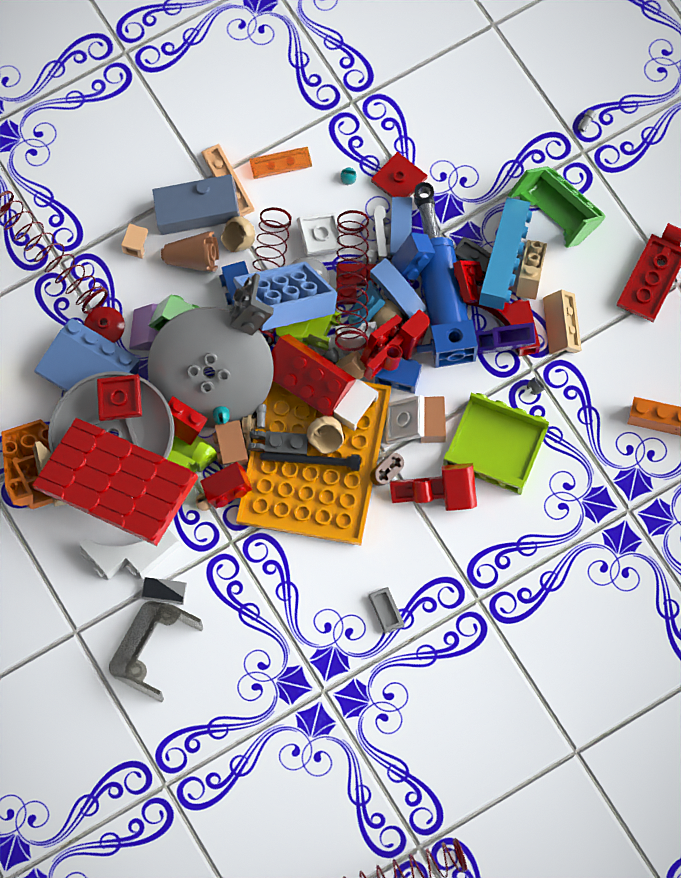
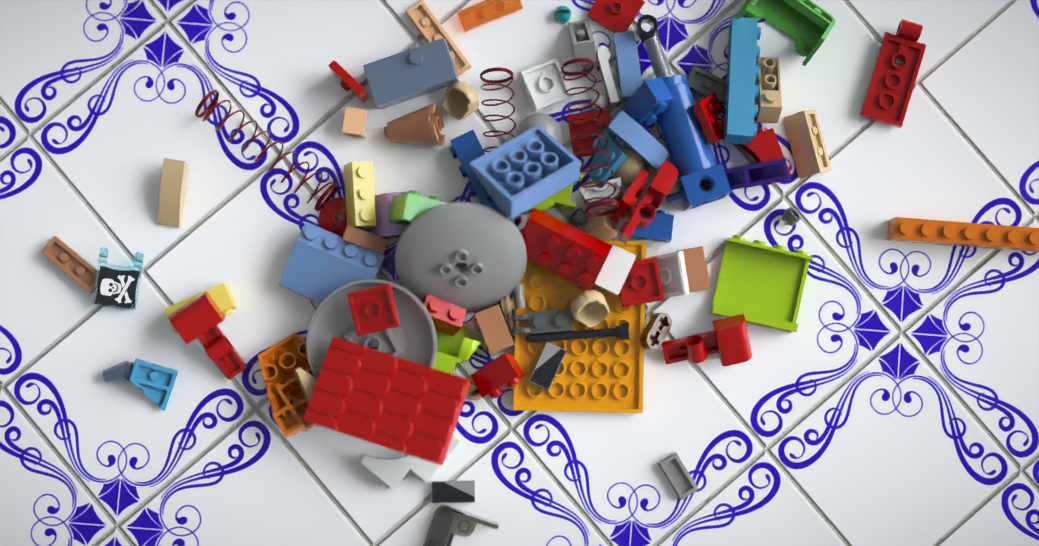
camera: 15 degrees left, 15 degrees up
(124, 342) = (365, 239): none -> nougat slope
(127, 304) = (360, 194): none -> light yellow brick
(136, 202) = (347, 82): none -> red plate
(225, 413) = (479, 303): teal hinge -> none
(248, 312) = (490, 204): dark grey bracket -> none
(276, 484) = (547, 365): none -> black tile
(362, 202) = (582, 41): none -> light grey slope
(379, 422) = (642, 284): none -> red plate

